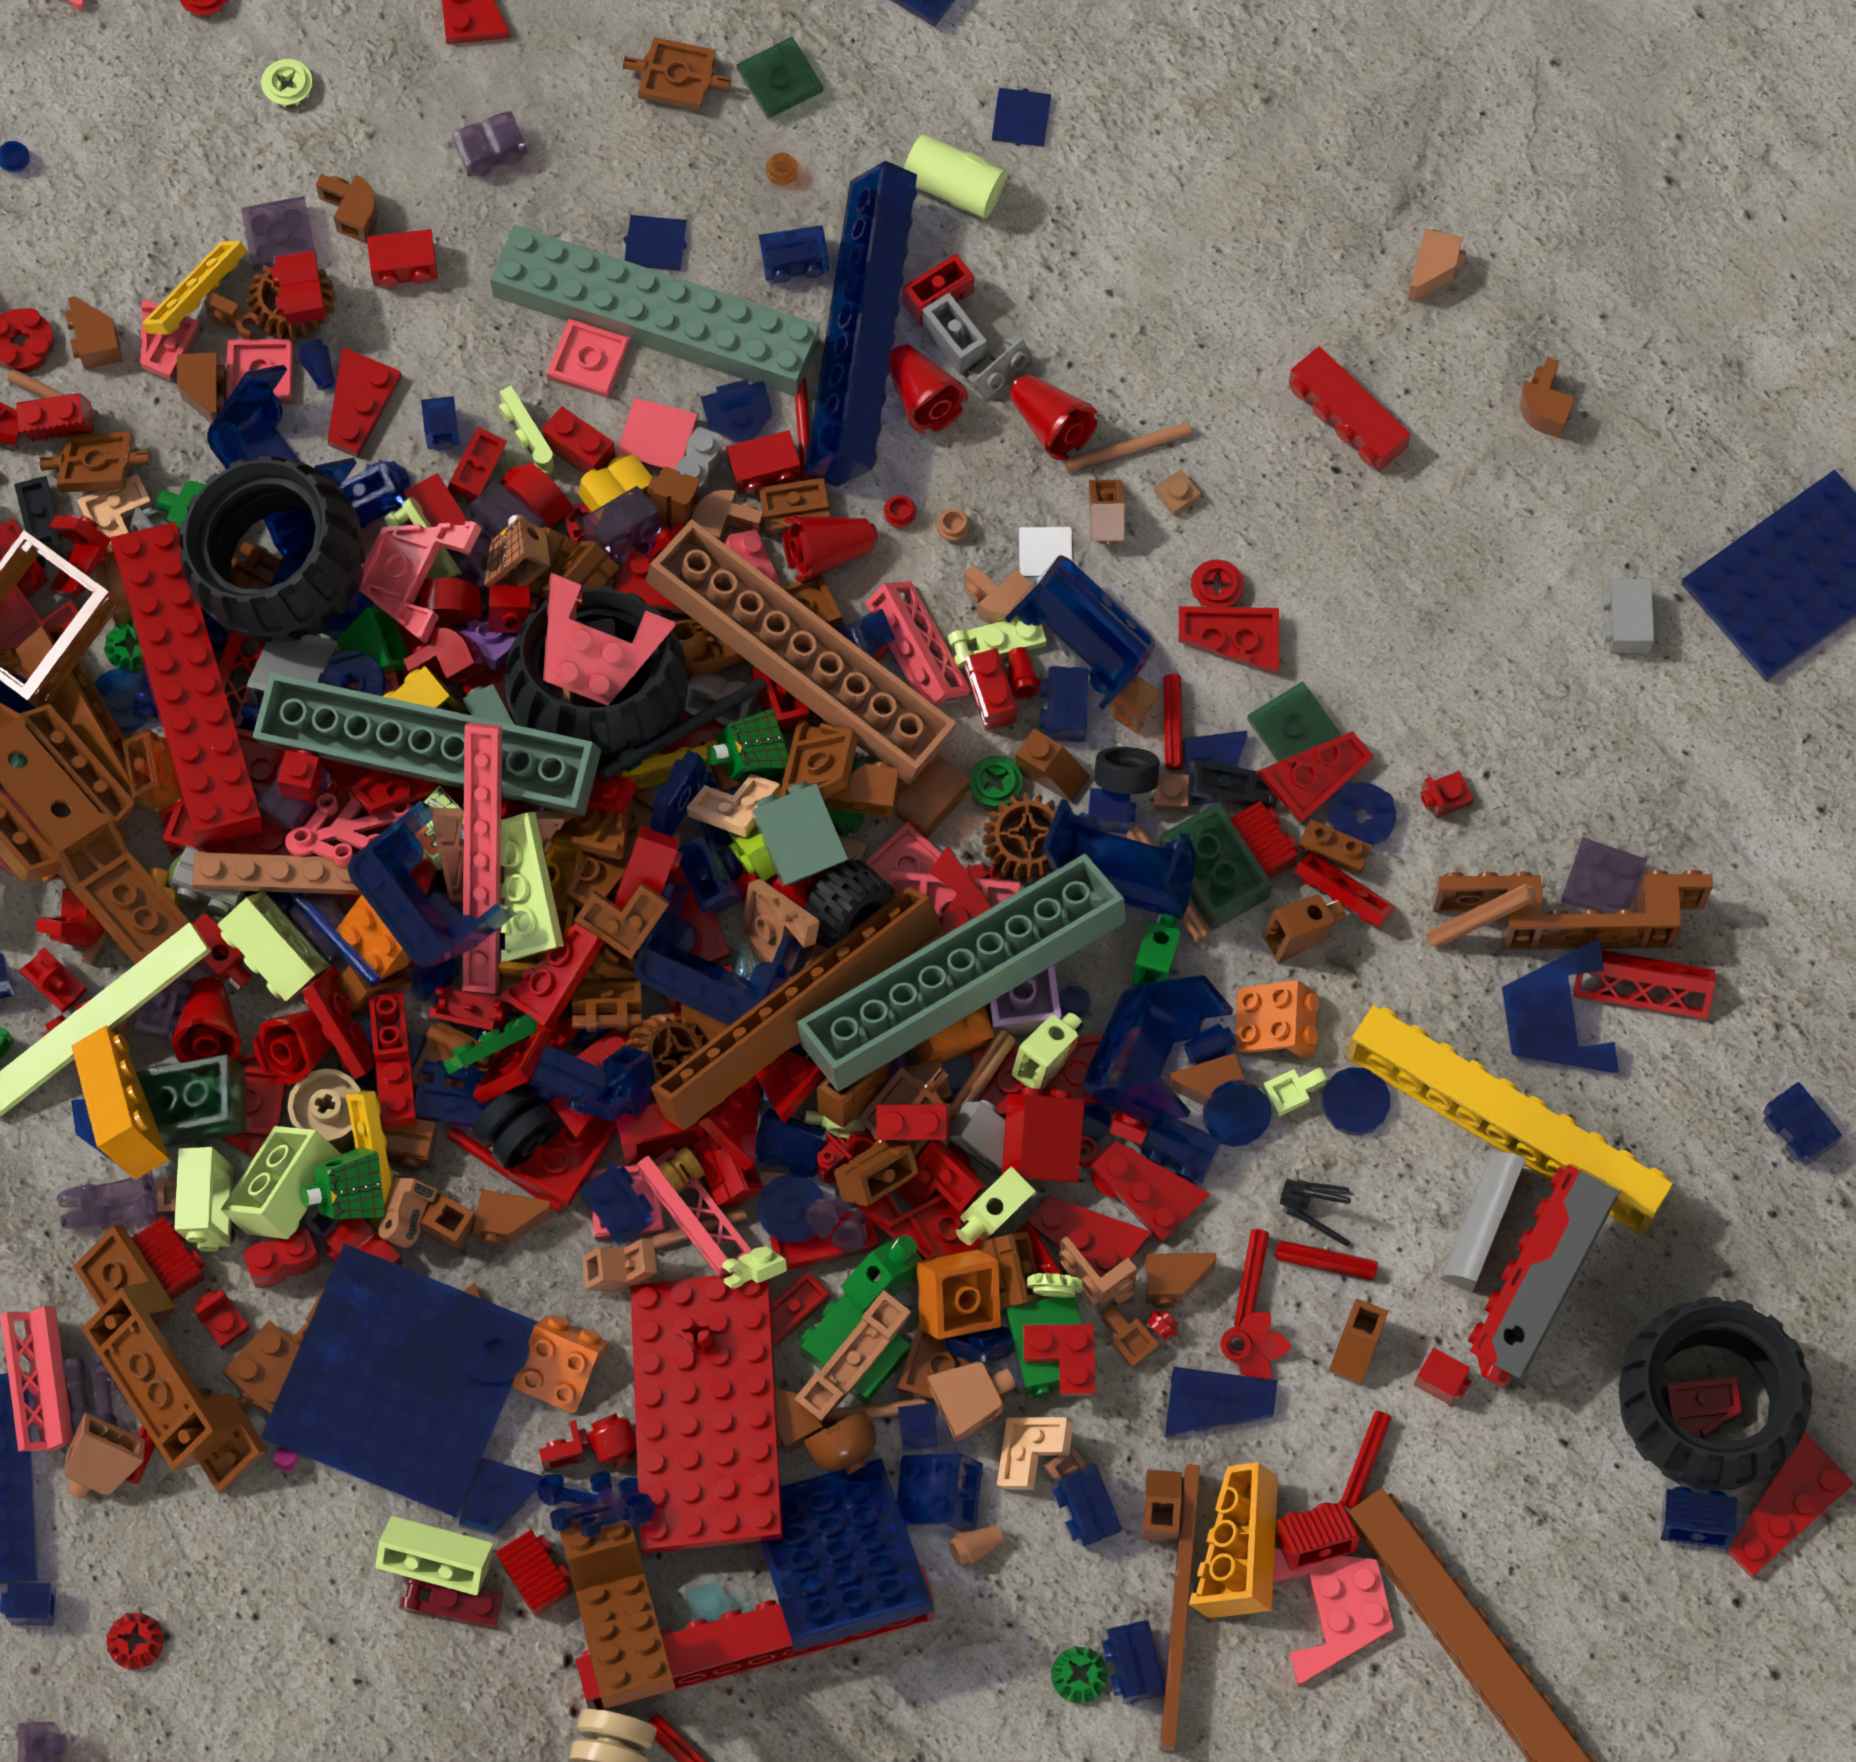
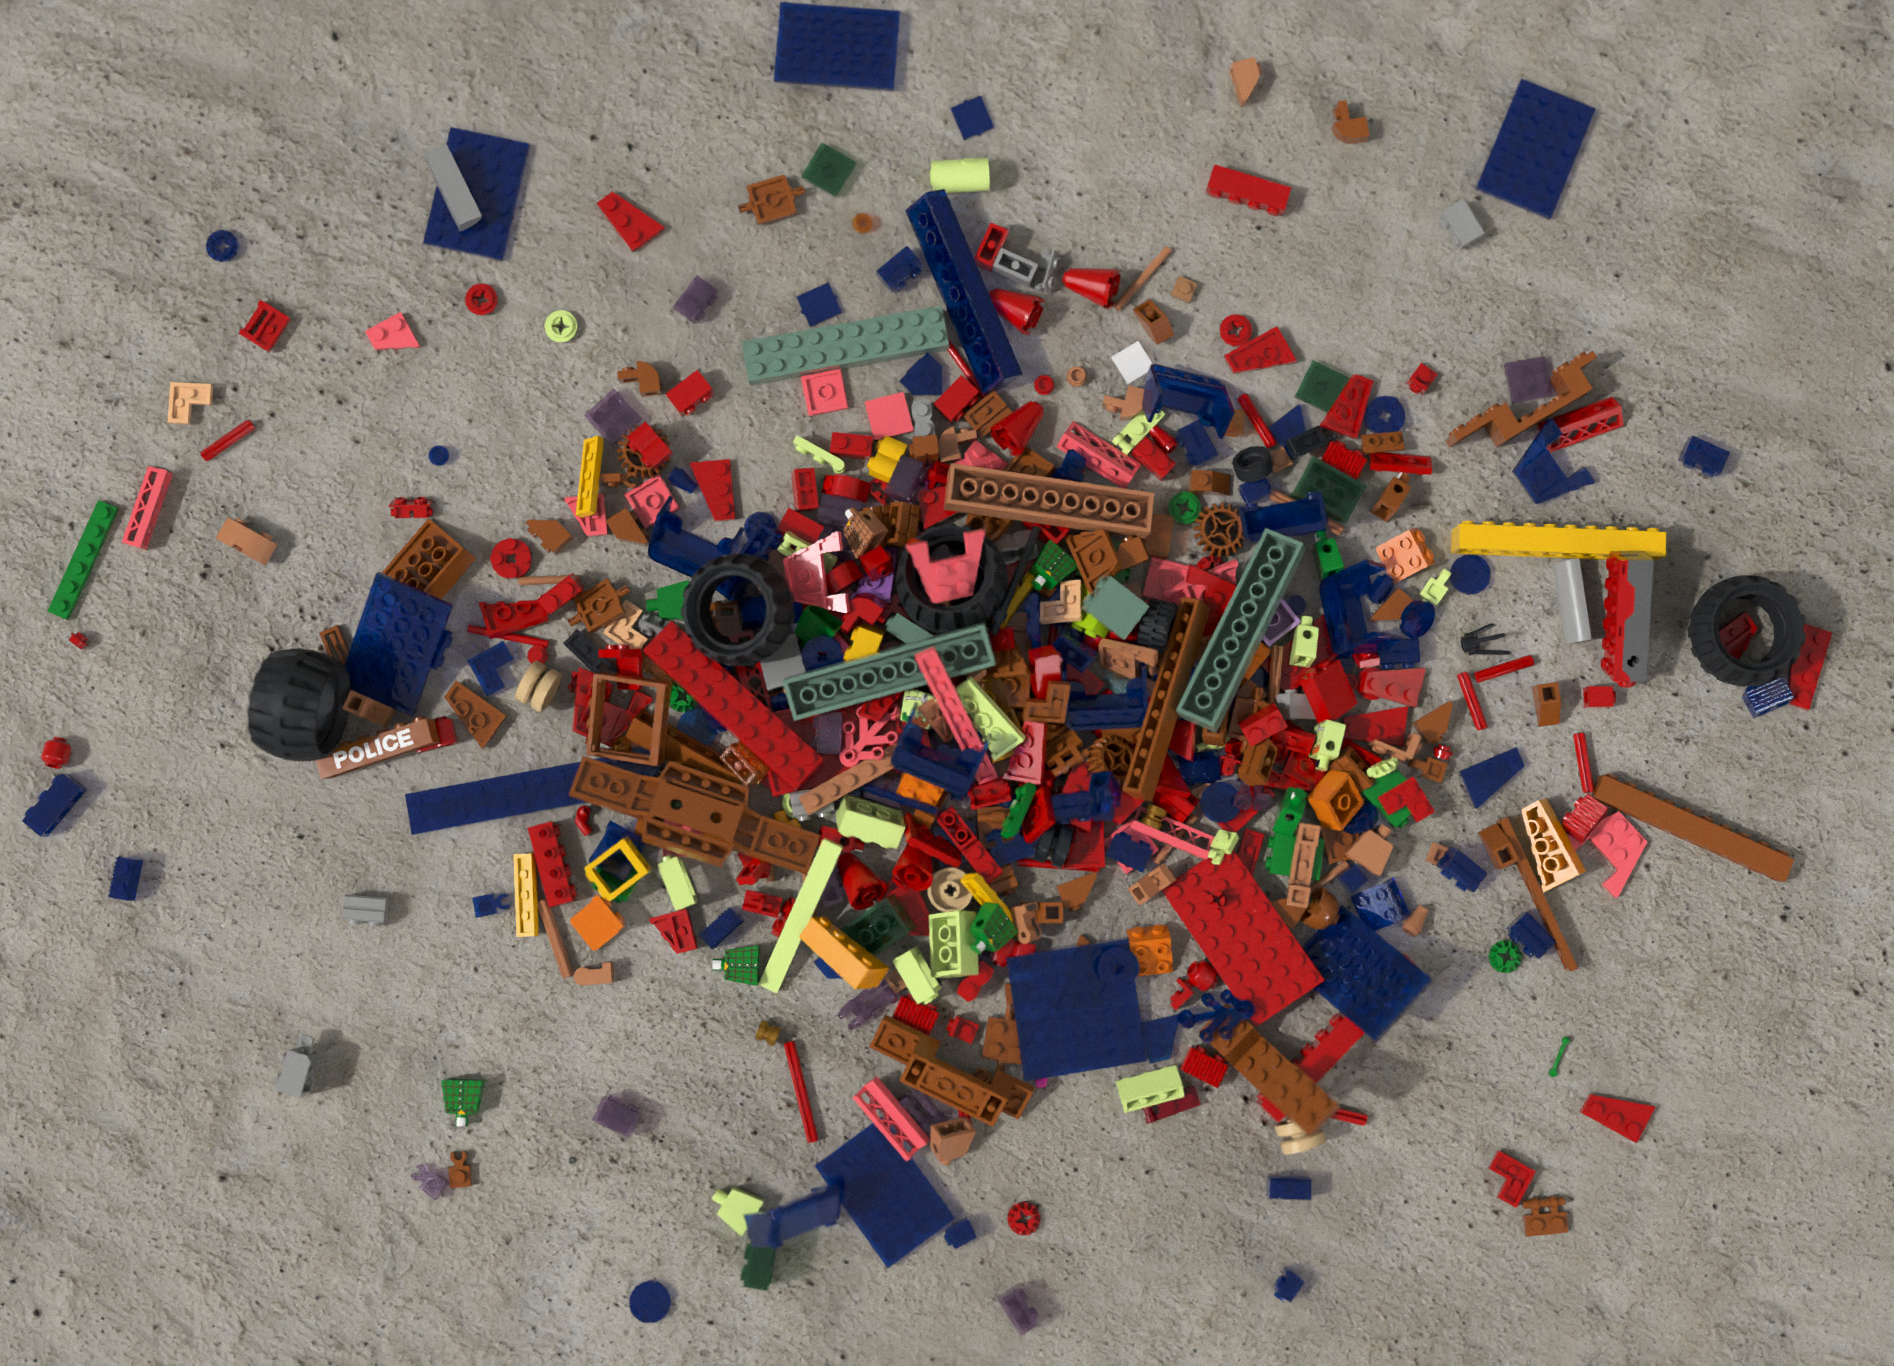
camera: 30 degrees left, 15 degrees up
(300, 776) = (831, 725): red brick -> none
(440, 423) = (770, 476): clear blue brick -> none
(706, 1602) = (1302, 1033): clear light blue brick -> none
(1024, 1442) = (1410, 854): light nougat plate -> none
(1260, 1345) = (1497, 734): red plate -> none
(1481, 916) = (1483, 442): nougat axle -> none

